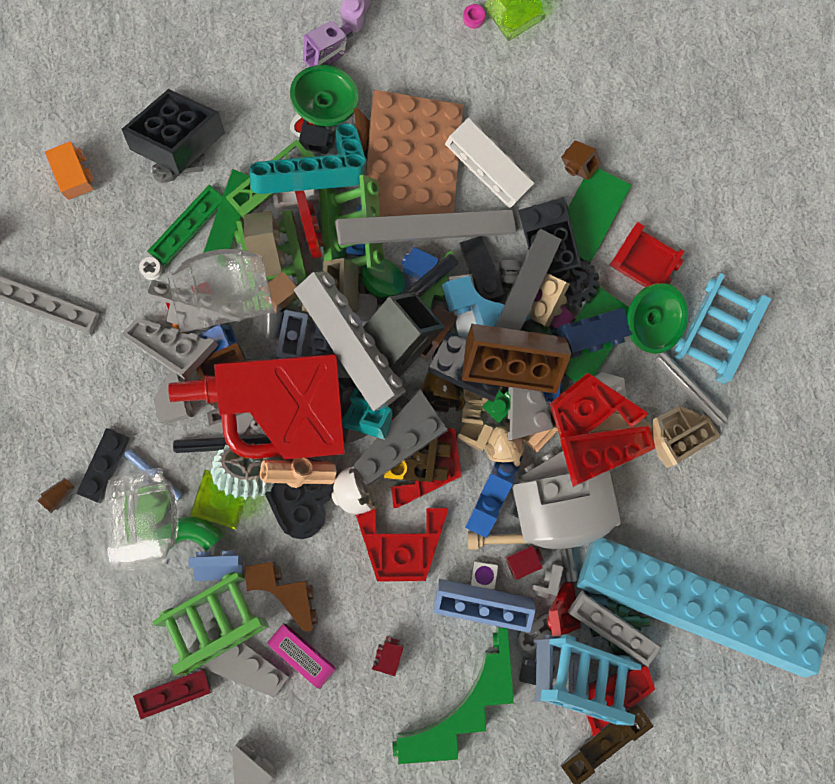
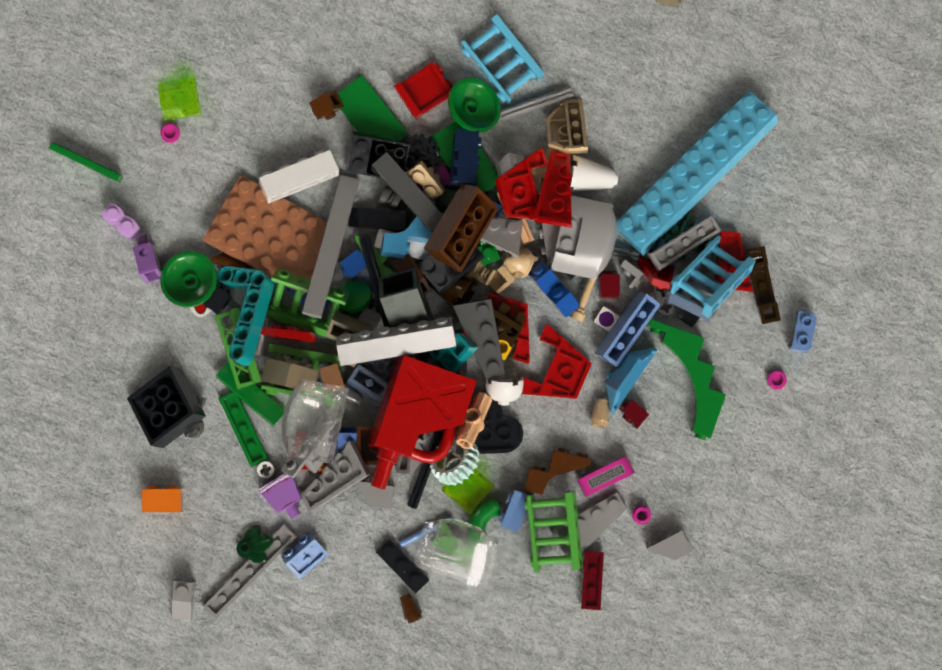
camera: 65 degrees left, 5 degrees up
(62, 292) = (257, 545): none -> dark green plate
(70, 350) = (304, 555): none -> medium blue bracket
(128, 297) = (282, 495): none -> medium lavender torso
(268, 723) = (636, 510): none -> dark pink plate
(371, 617) = (600, 414): none -> tan cone
(428, 627) = (625, 375): none -> dark azure wedge
(640, 484) = (590, 175): none -> white cone

